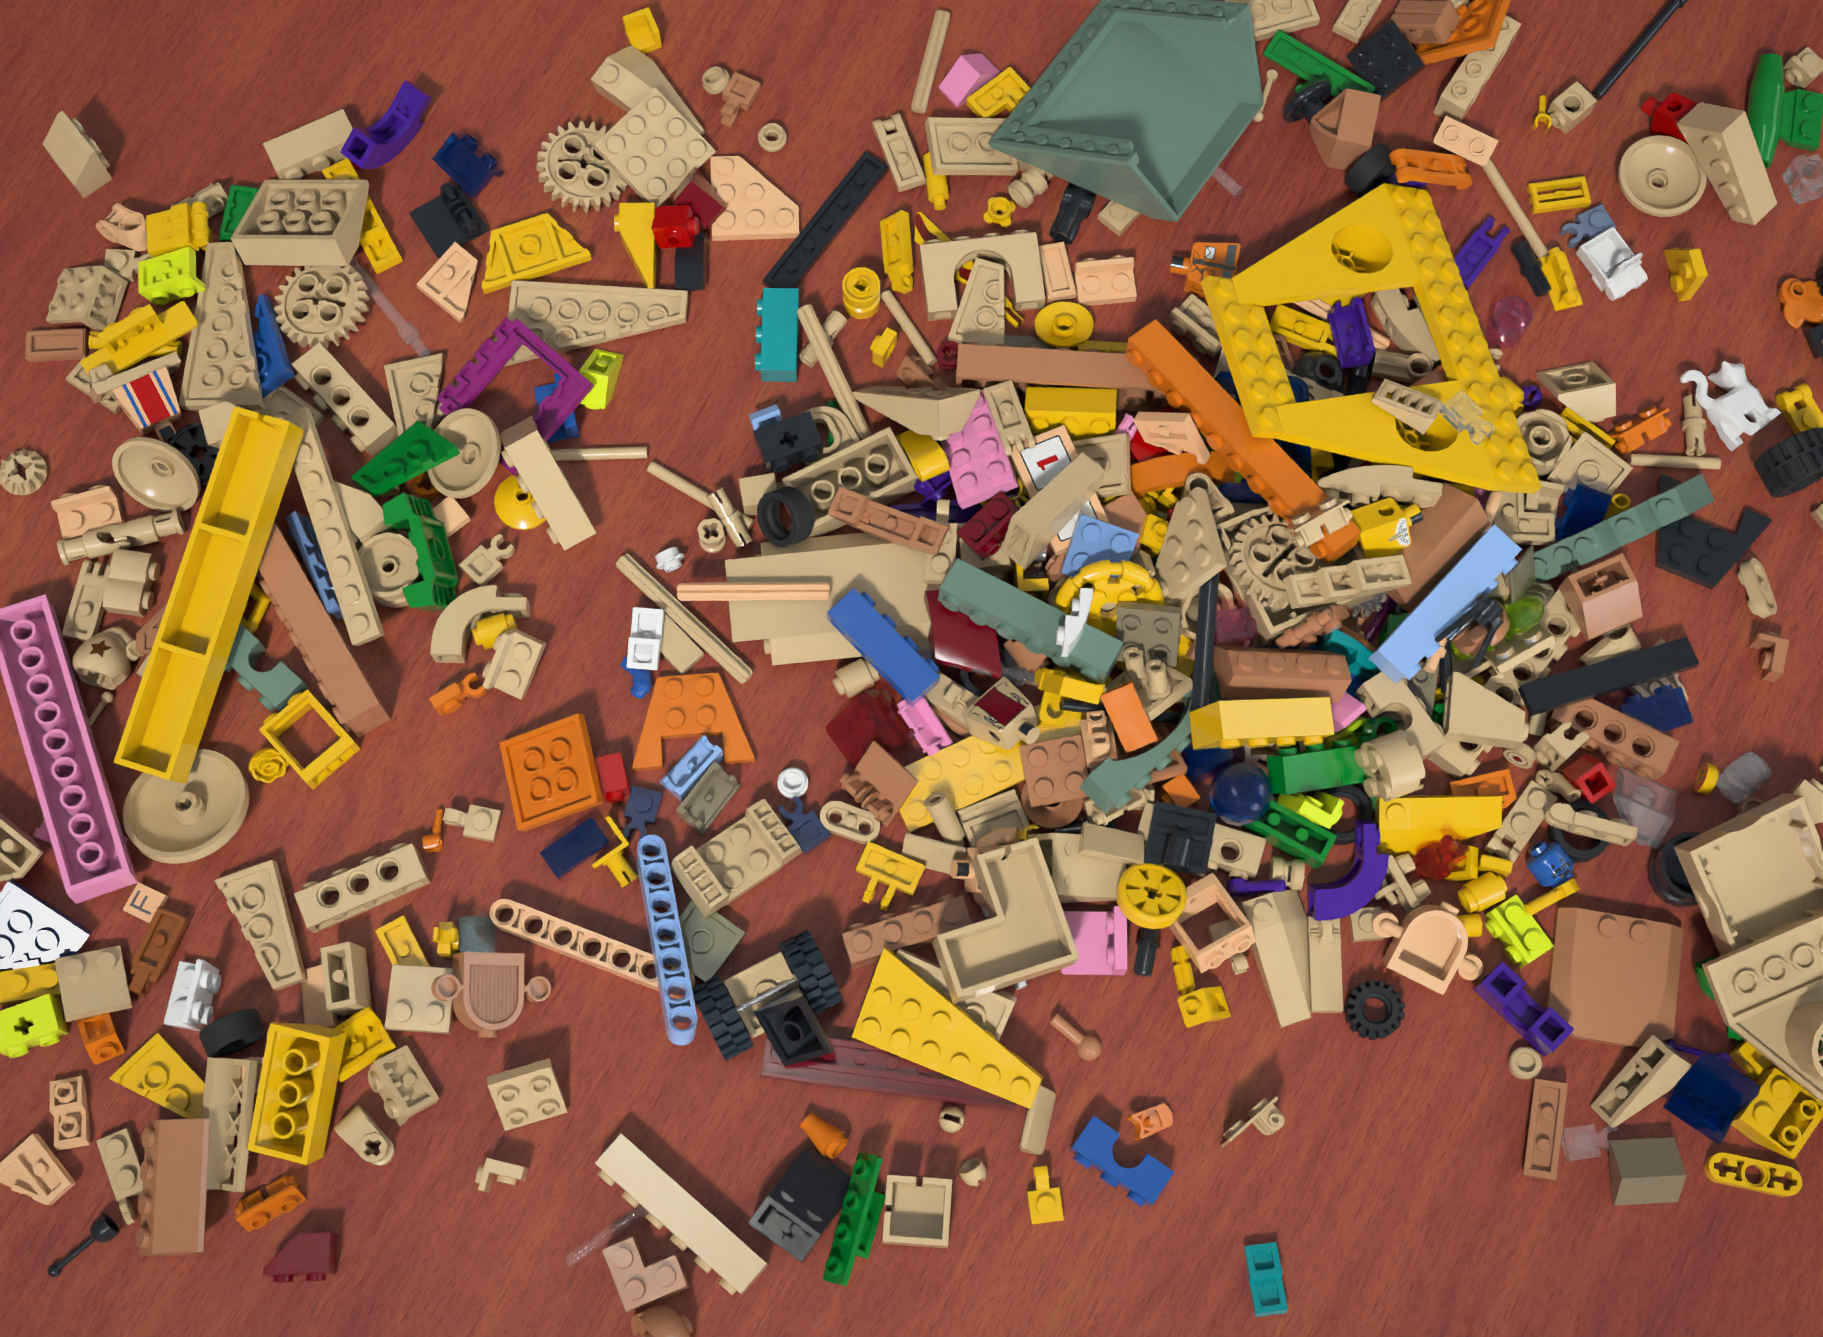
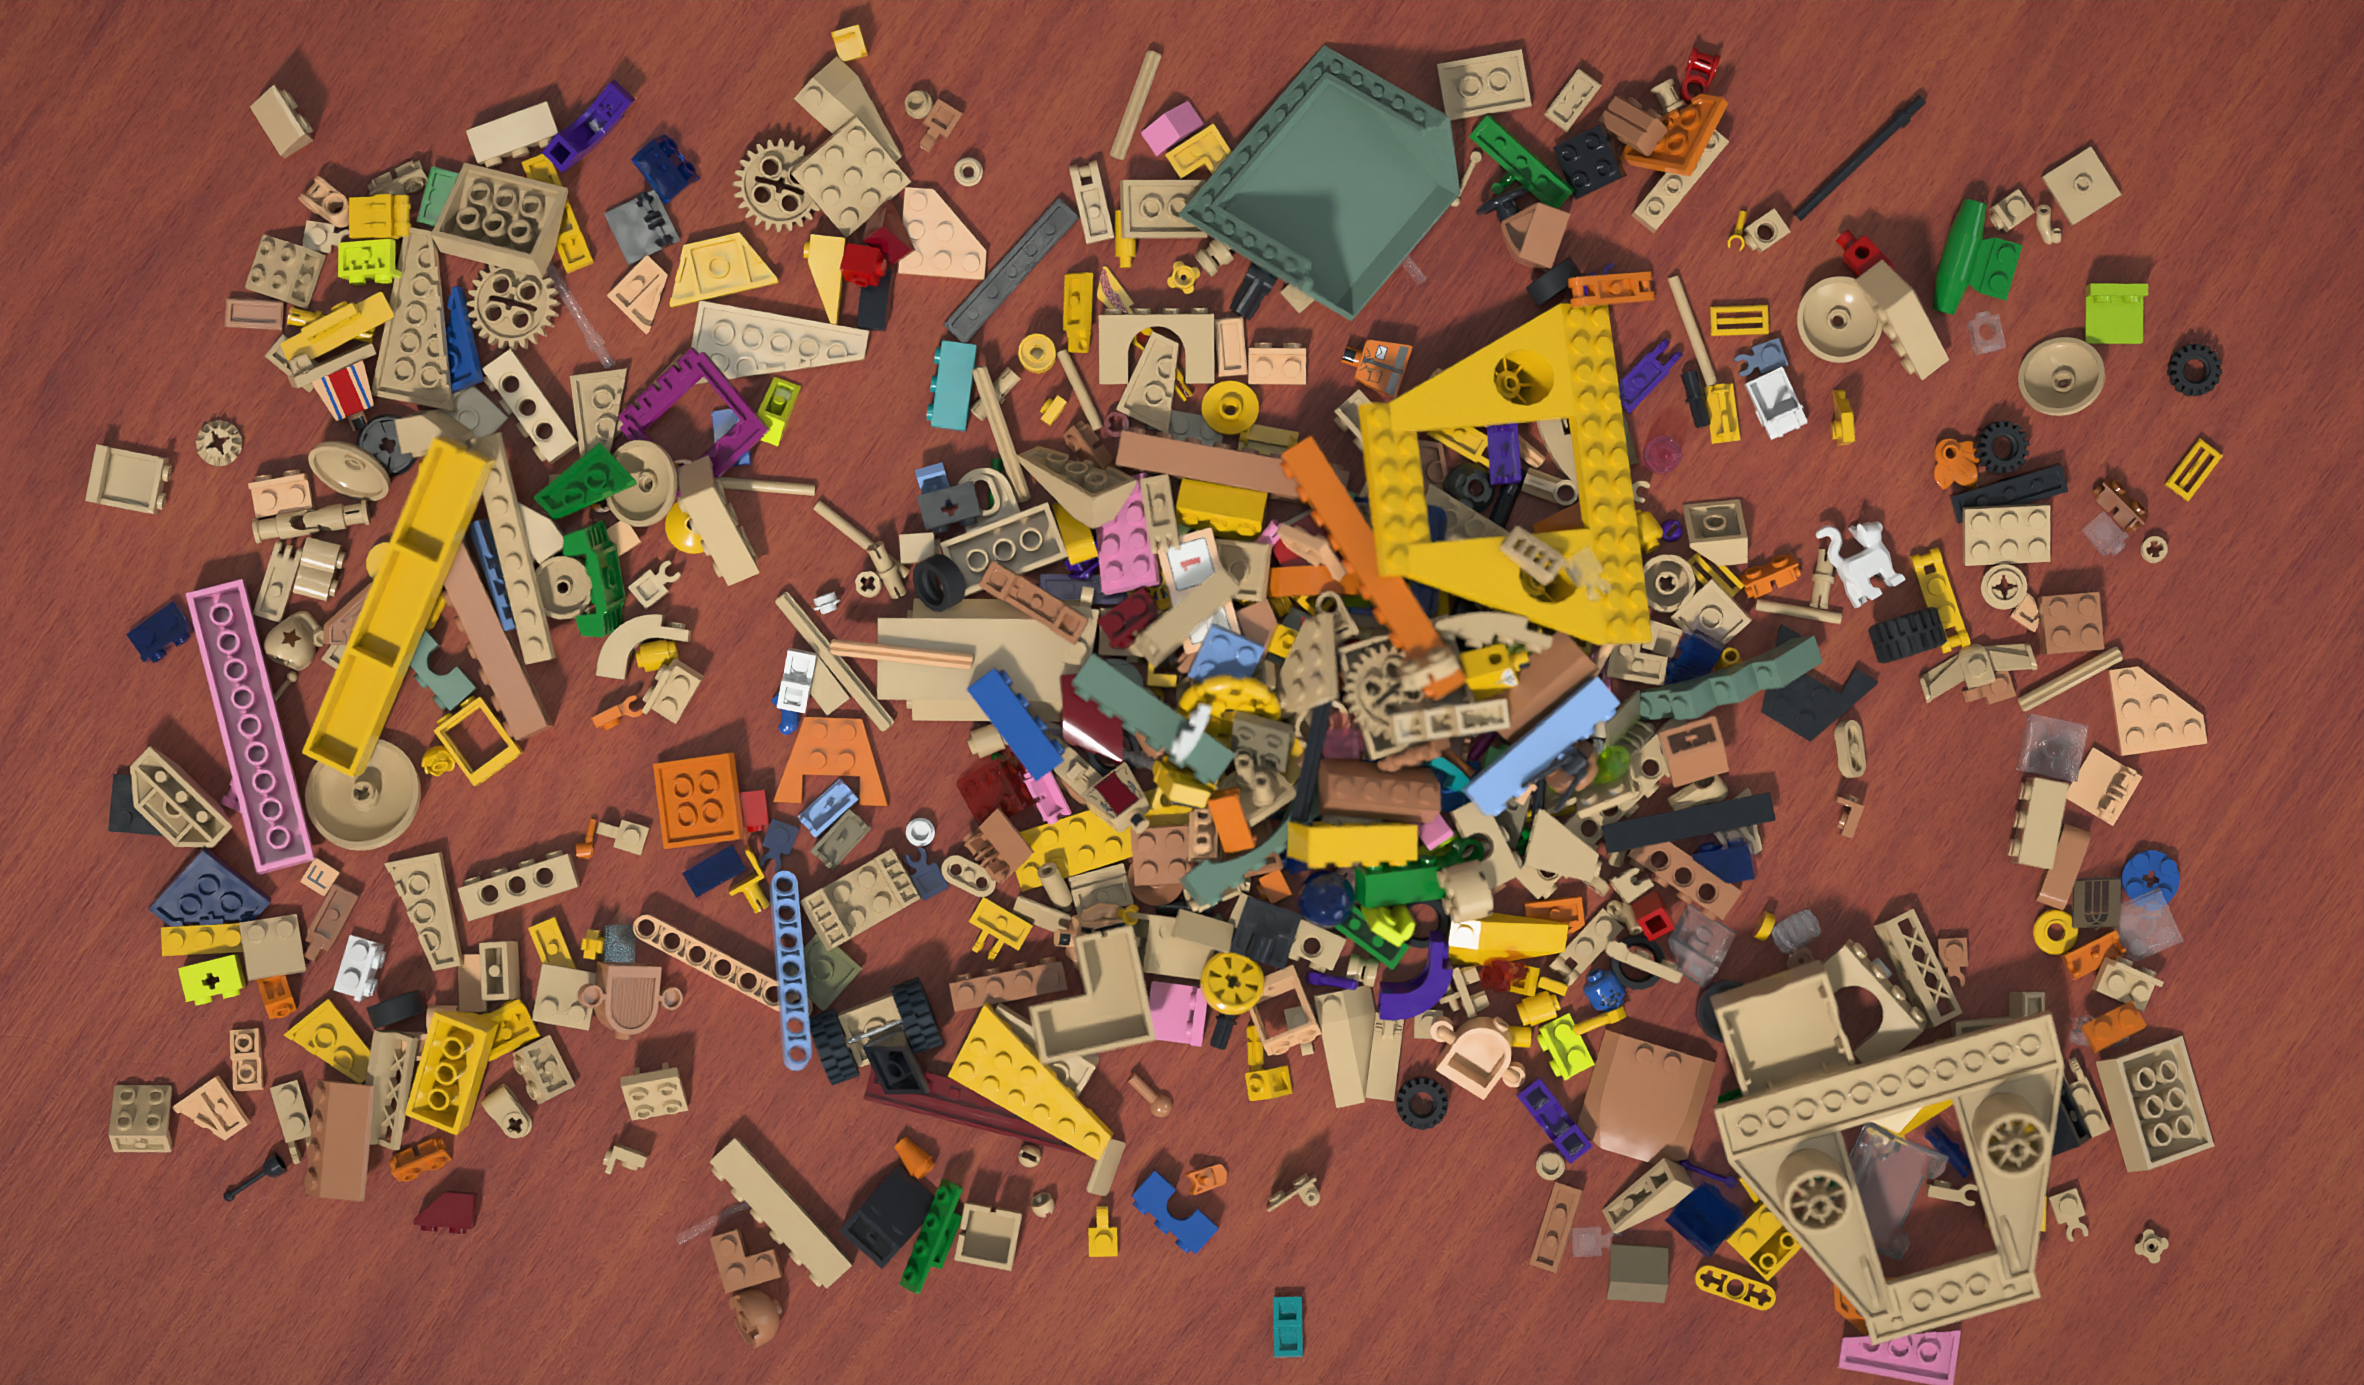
camera: 10 degrees right, 15 degrees up
(1465, 141) = (1654, 257): light nougat bracket -> none

